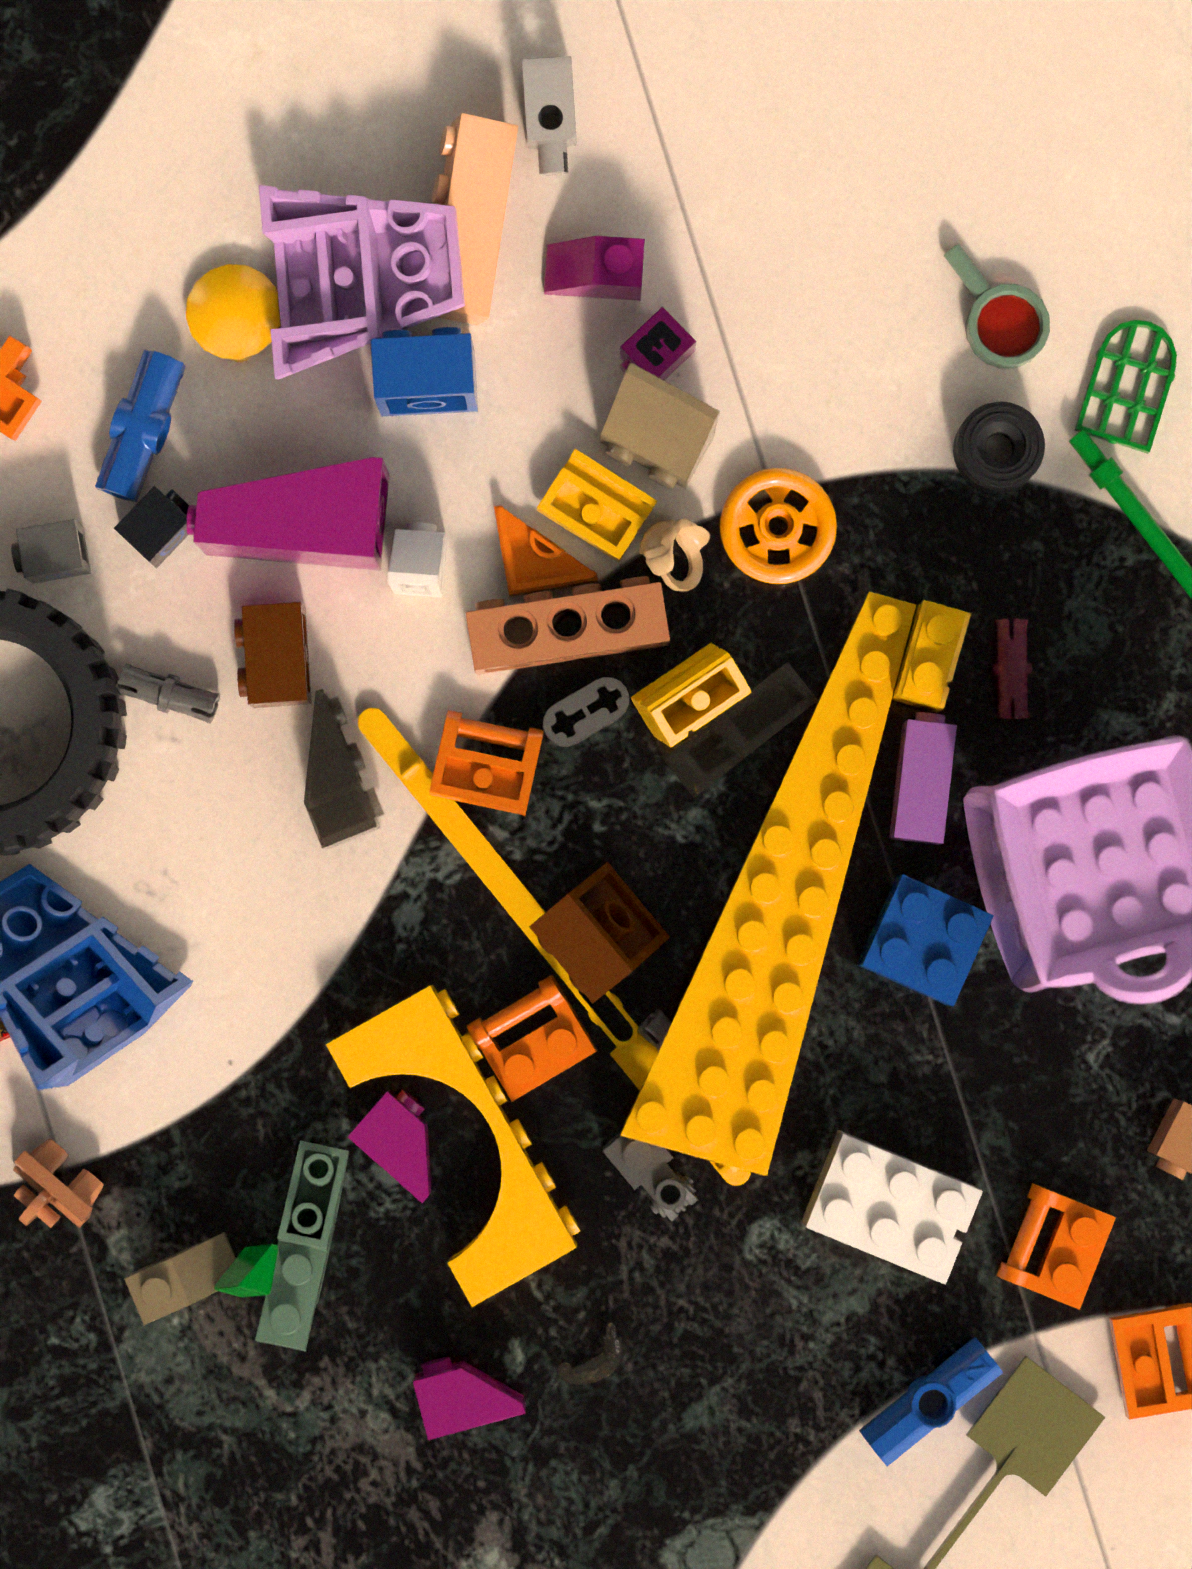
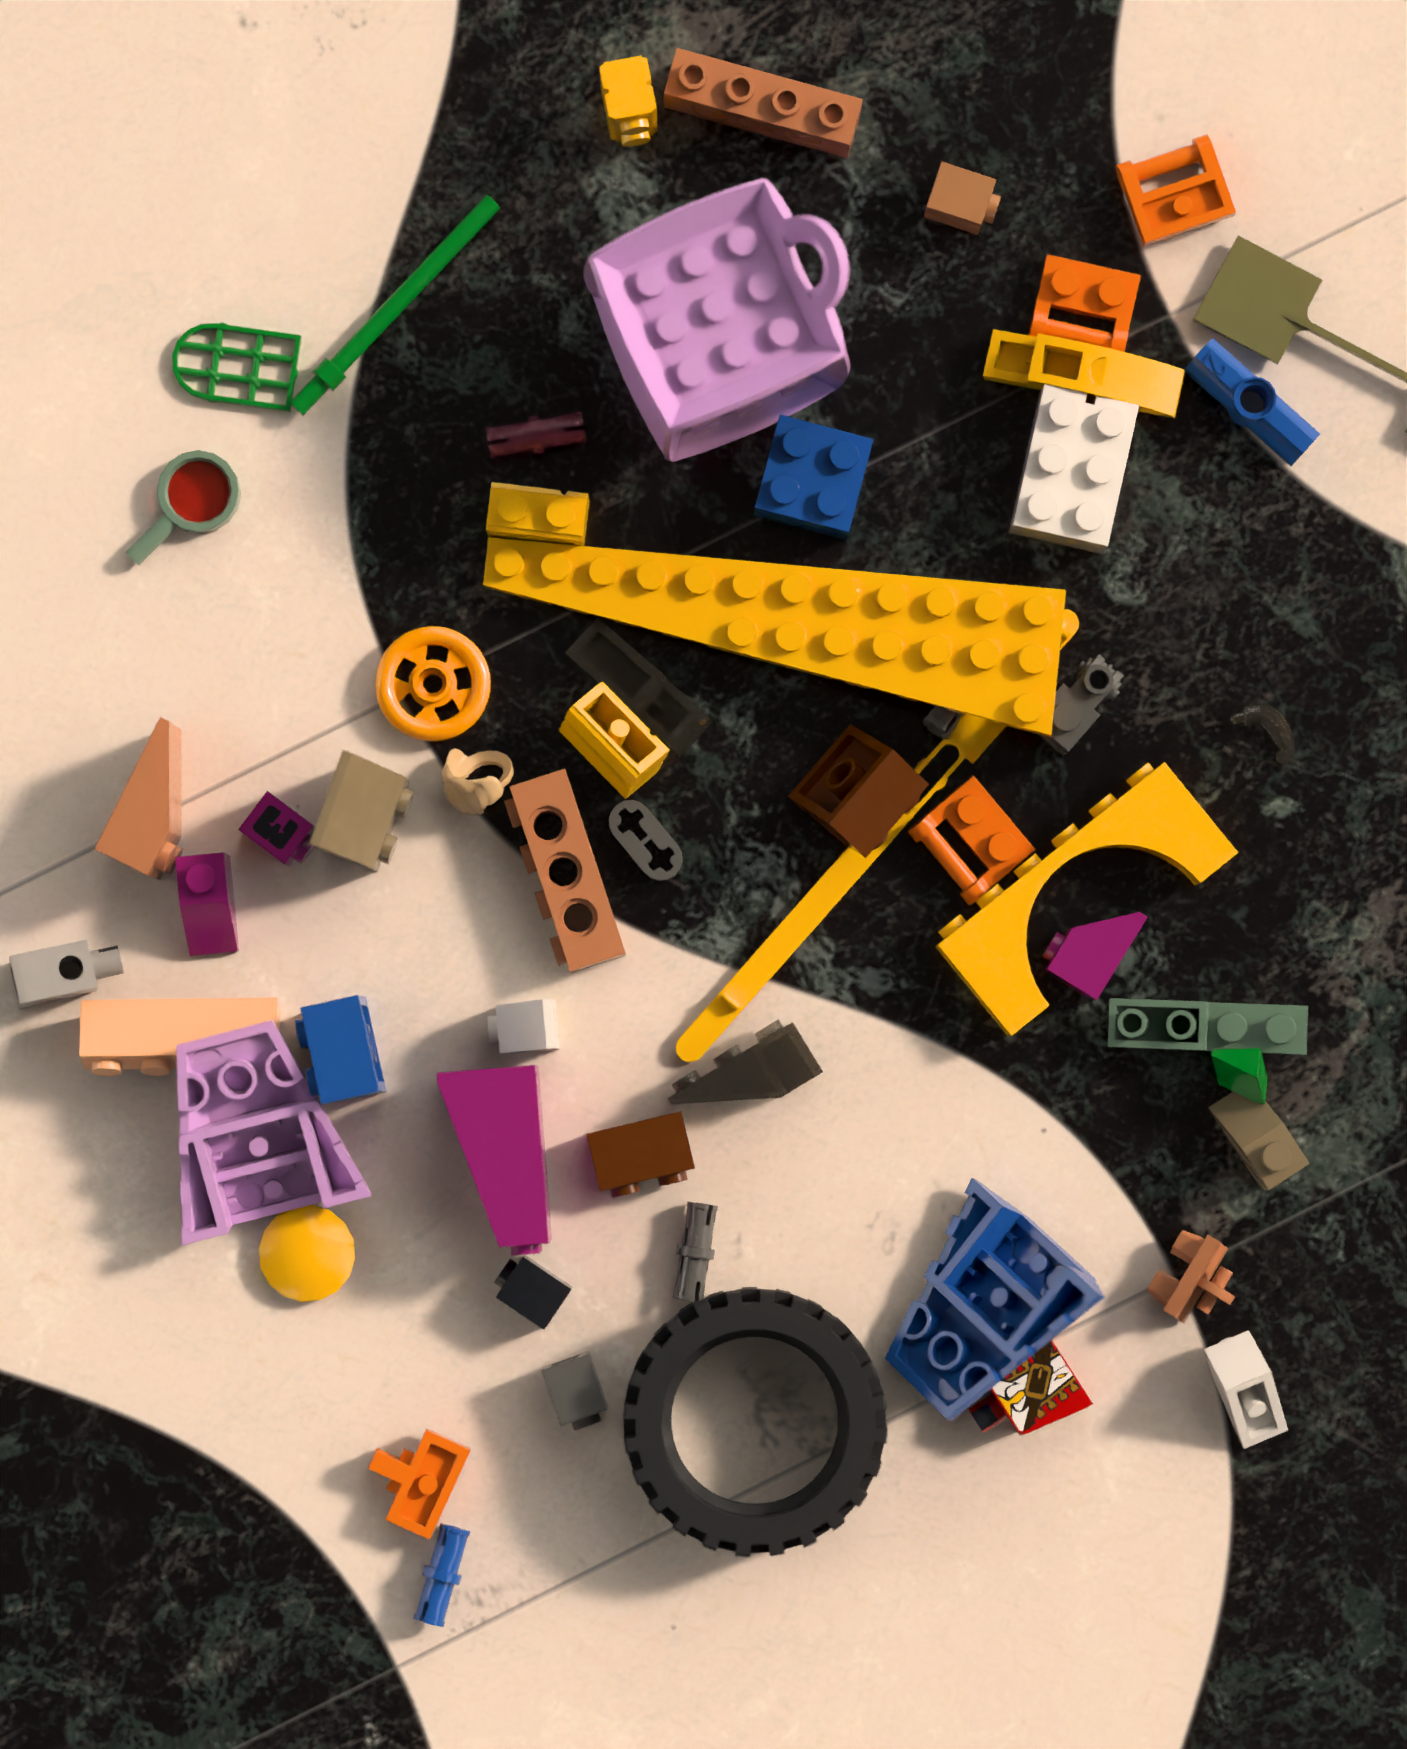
camera: 100 degrees left, 0 degrees up
(140, 426) = (436, 1324): blue piece -> none
(462, 1398) = (1326, 849): magenta slope -> none
(483, 777) = (727, 928): orange plate -> none
(534, 561) = (505, 916): orange tile -> none
(596, 505) = (441, 863): yellow plate -> none
(698, 224) = (148, 813): none -> nougat slope
(923, 779) = (658, 503): medium lavender brick -> none
(991, 1235) = (1084, 368): none -> yellow slope
(1005, 420) = (321, 454): black tyre -> none

